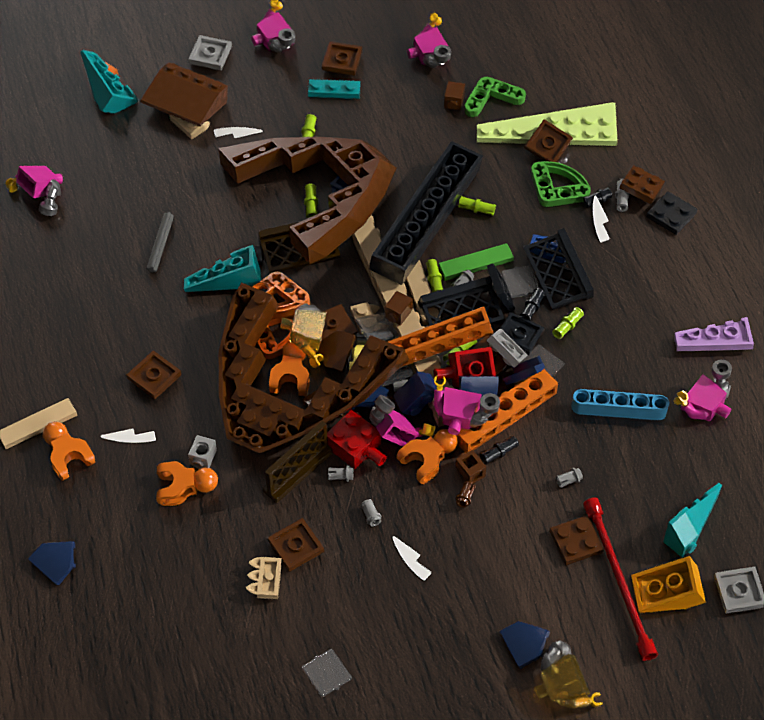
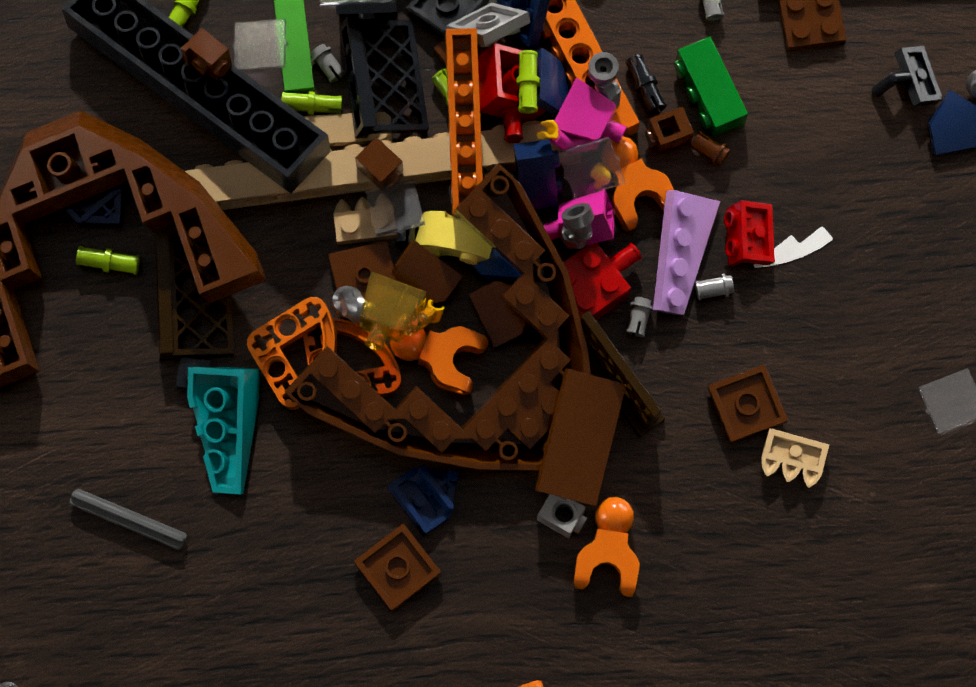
camera: 80 degrees left, 20 degrees up
(129, 436) = (498, 625): white sticker -> none
(200, 382) = (426, 496): none -> dark blue slope
(247, 442) = (580, 437): none -> reddish brown tile
(398, 487) = (682, 246): none -> lavender wing
(413, 526) = (749, 233): none -> red bracket
(427, 418) = (591, 167): none -> clear piece
(438, 204) = (207, 55): none -> reddish brown brick
(464, 246) = (260, 44): none -> clear piece
(470, 368) = (528, 81): none -> lime pin
(507, 485) = (710, 87): none -> green brick
(552, 608) = (916, 74): none -> black plate

